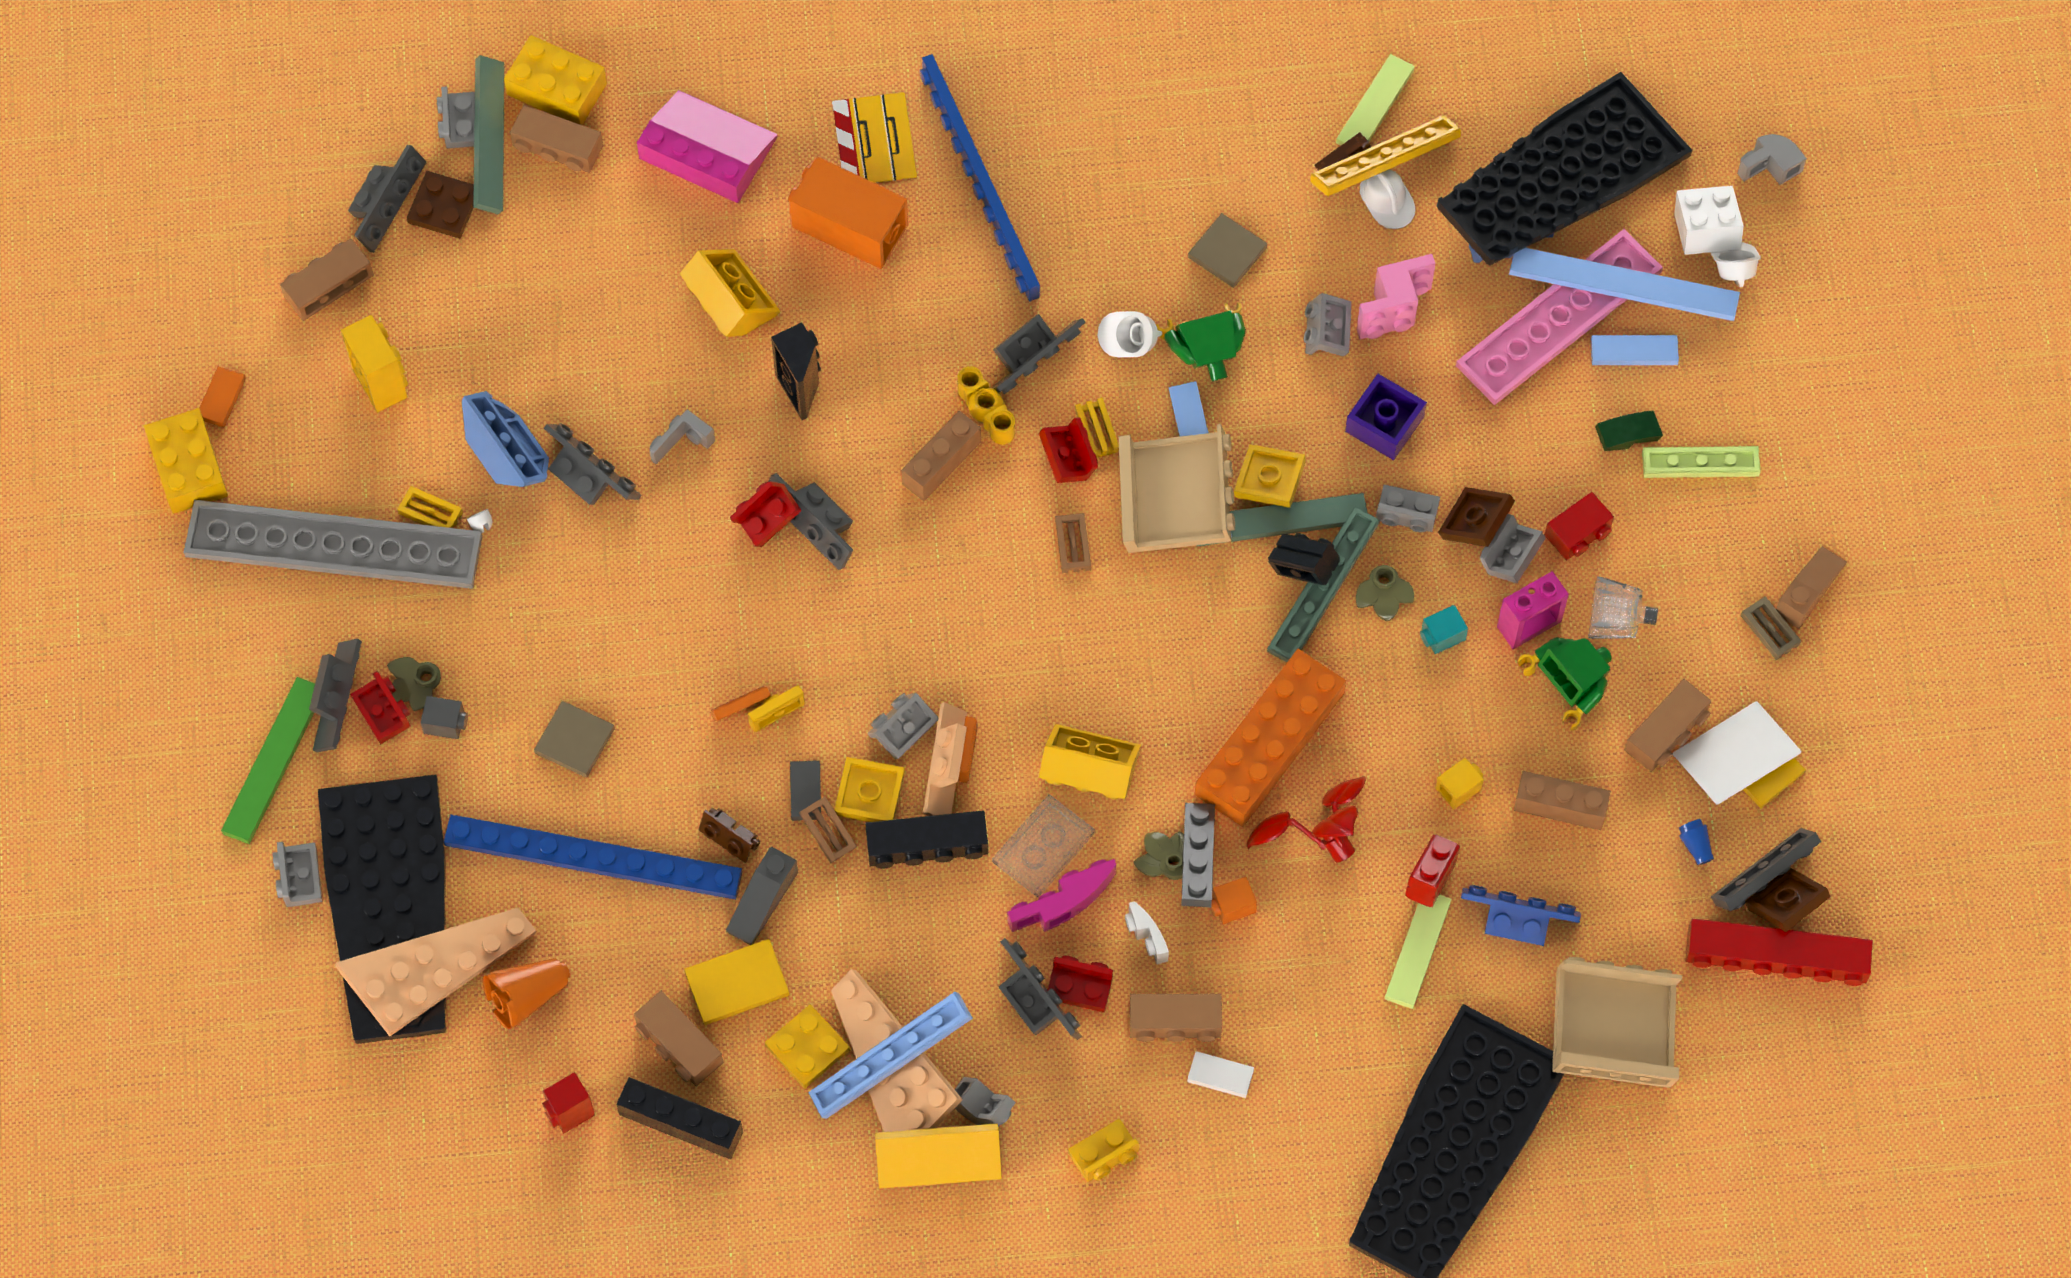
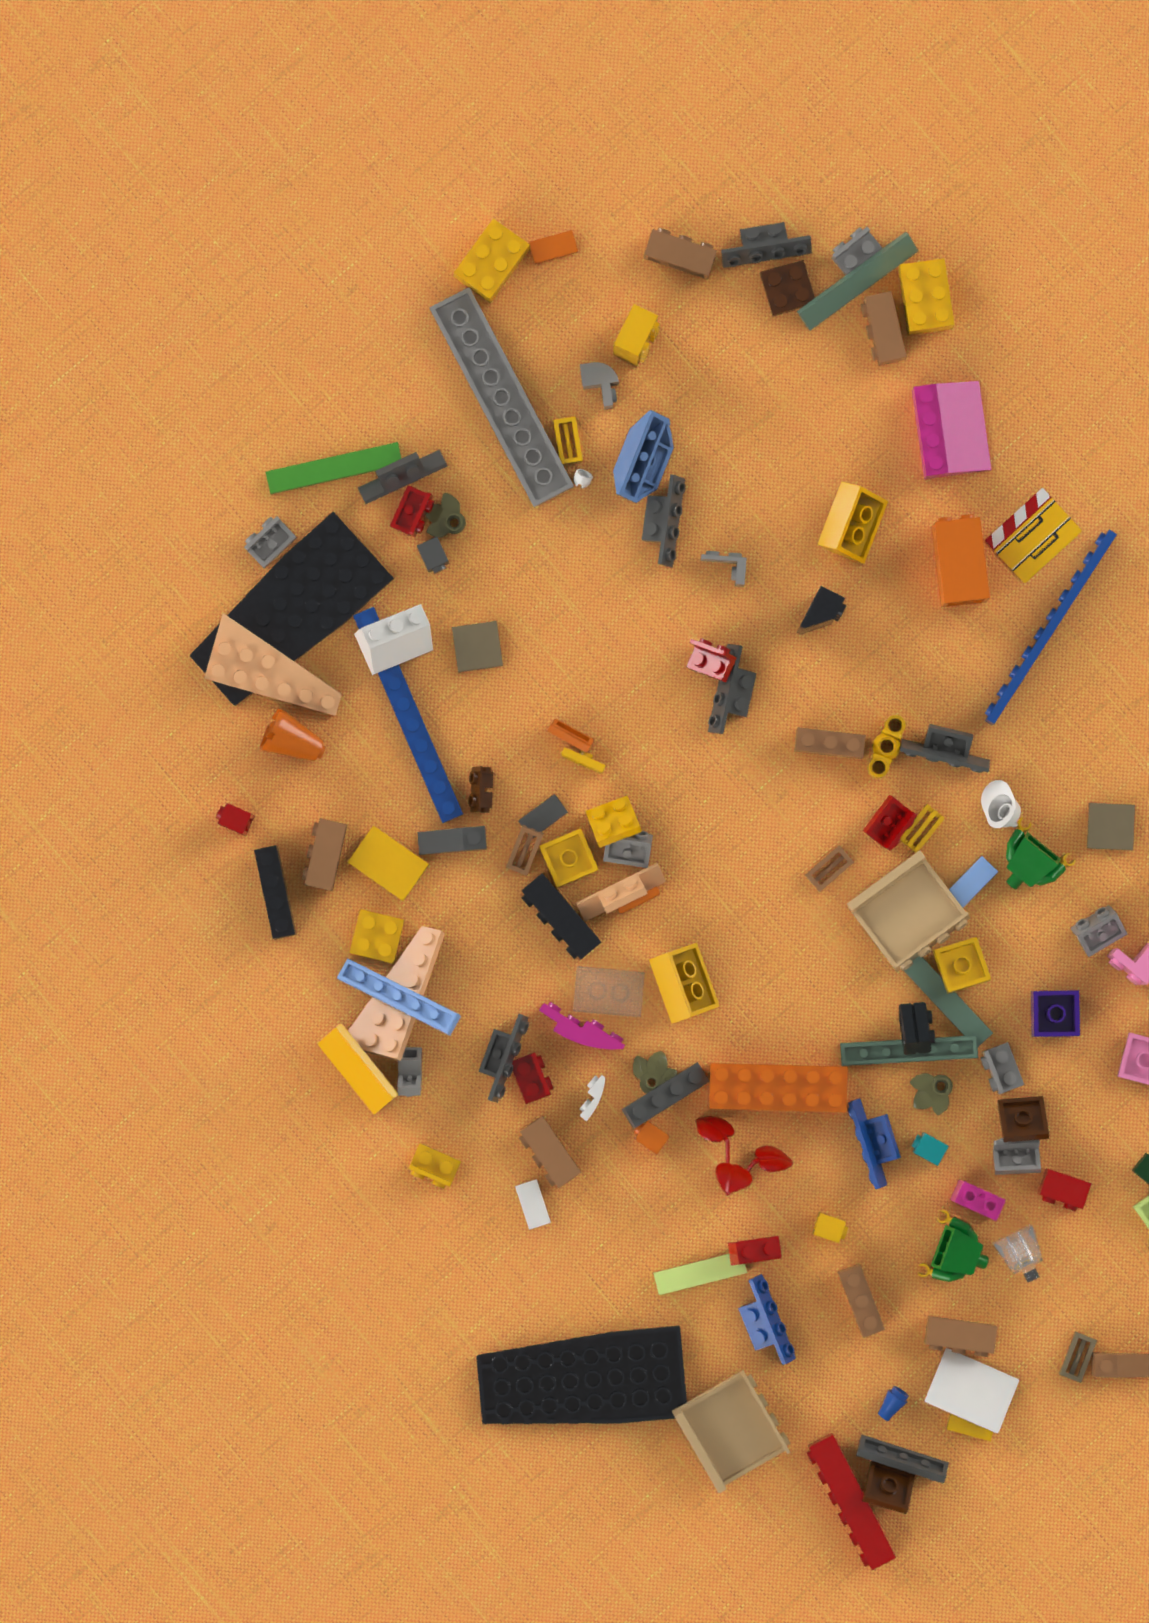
camera: 55 degrees right, 20 degrees up
(390, 433) = (600, 375): none -> light grey brick
(501, 809) = (395, 639): none -> white slope
(864, 717) = (613, 821): none -> yellow plate
(1399, 675) = (876, 1141): none -> blue bracket

